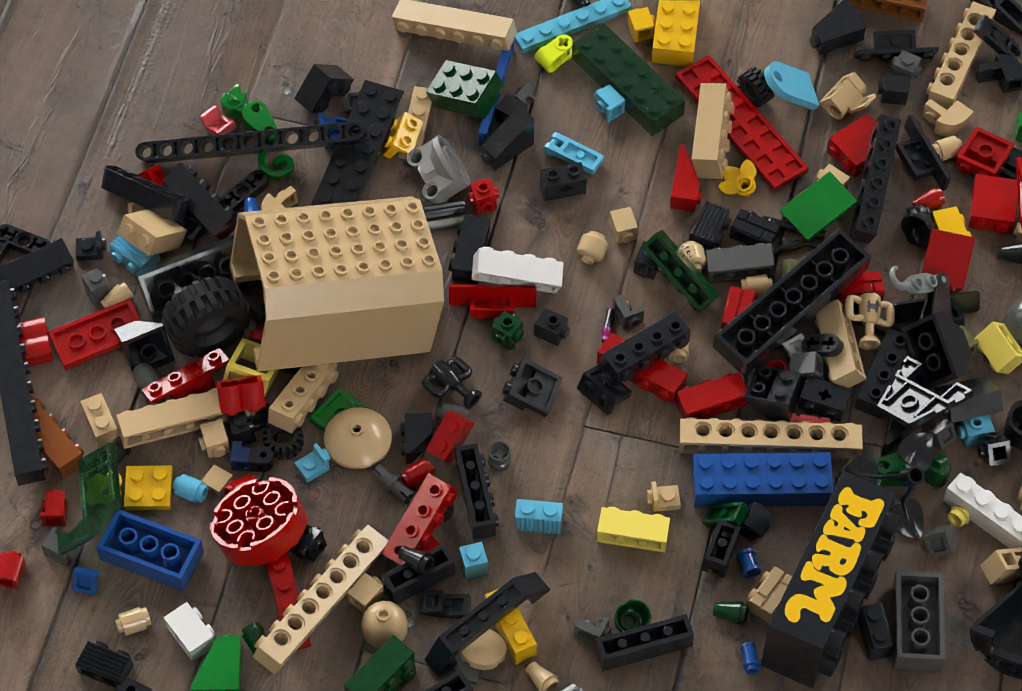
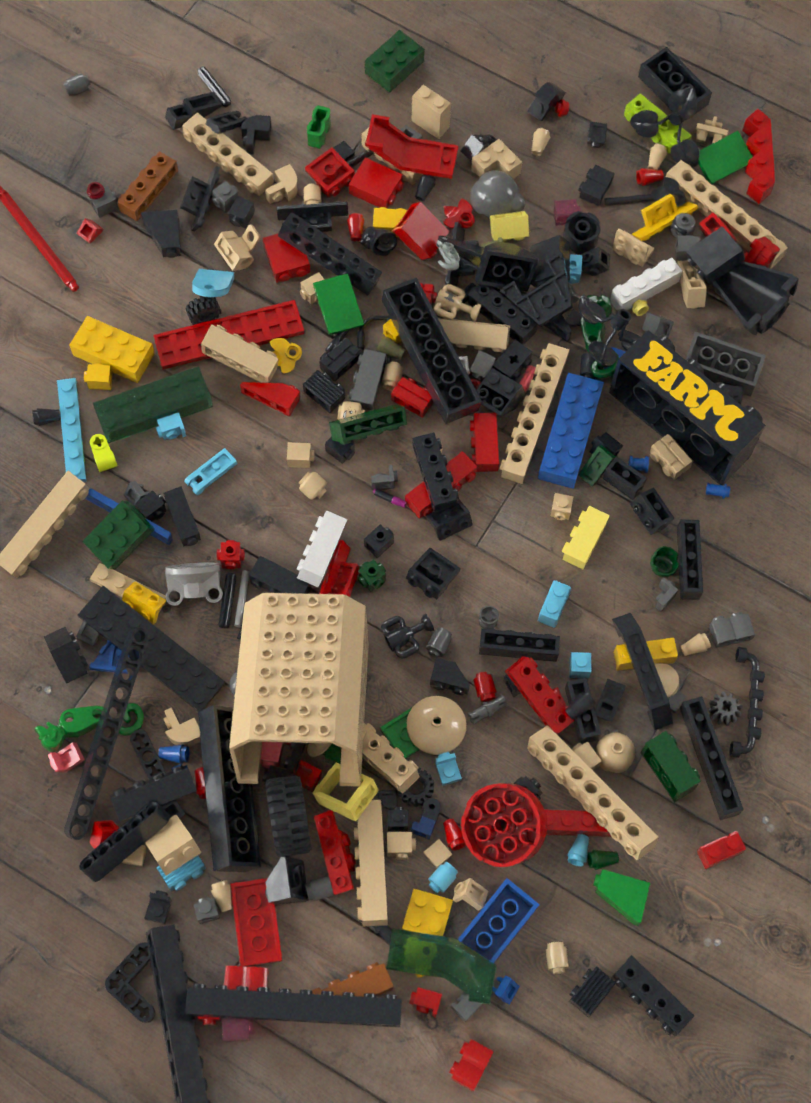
camera: 75 degrees left, 10 degrees up
(100, 420) = (351, 940): tan brick -> none
(180, 518) = (471, 893): none -> tan bracket
(190, 631) = (580, 911): white brick -> none
(241, 395) = (378, 806): red brick -> none
(259, 613) = (578, 852): none -> medium azure cone
(450, 434) = (464, 648): red brick -> none
(563, 181) = (239, 487): black brick -> none
(690, 588) = (652, 511): none -> black brick
(731, 611) = (676, 489): dark green cone -> none
(823, 342) = (468, 341): black beam -> none
(996, 297) = (458, 214): none -> red plate

